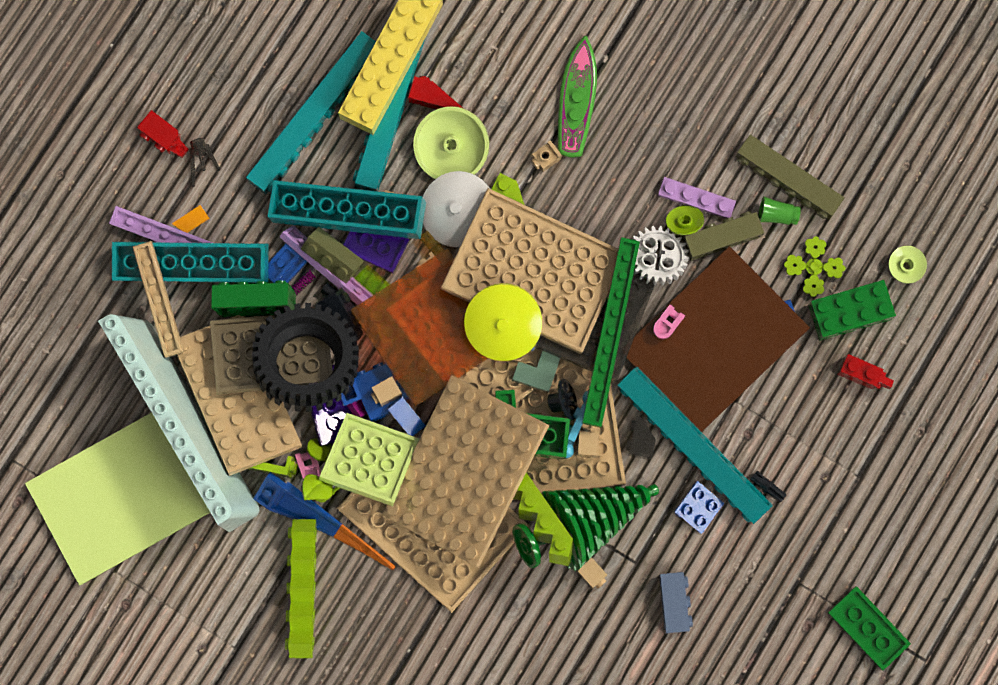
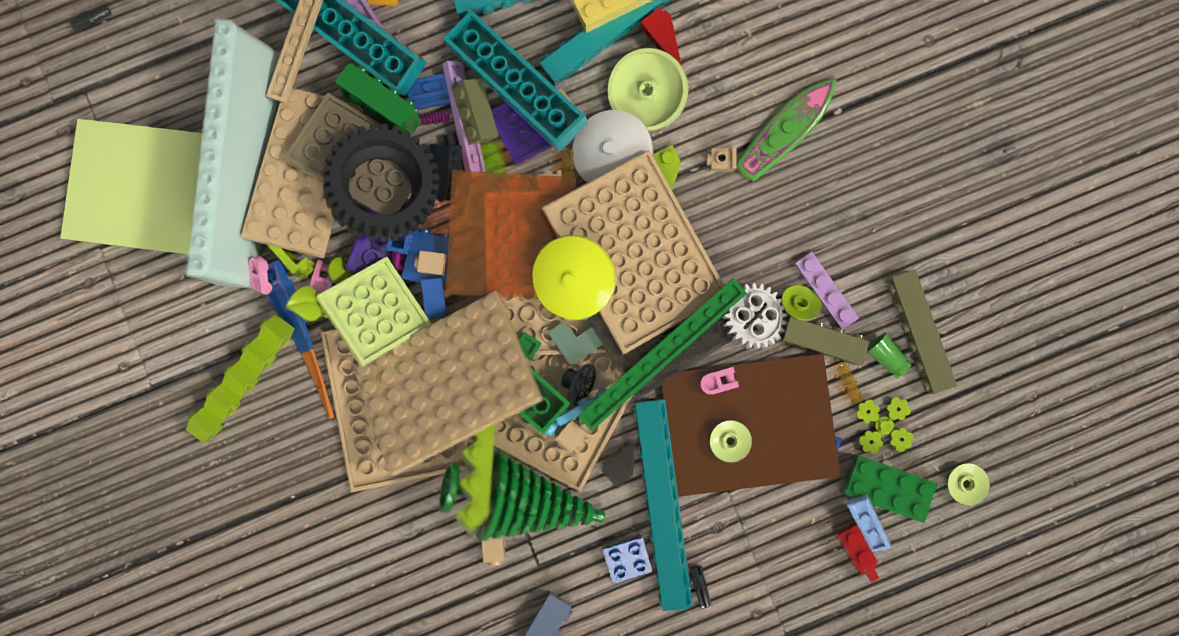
camera: 40 degrees right, 5 degrees up
(260, 497) = (258, 275): none -> bright pink plate
(716, 353) = (741, 444): none -> yellowish green dish
(765, 254) = (849, 383): none -> clear yellow axle
(856, 346) = (869, 523): none -> light blue tile

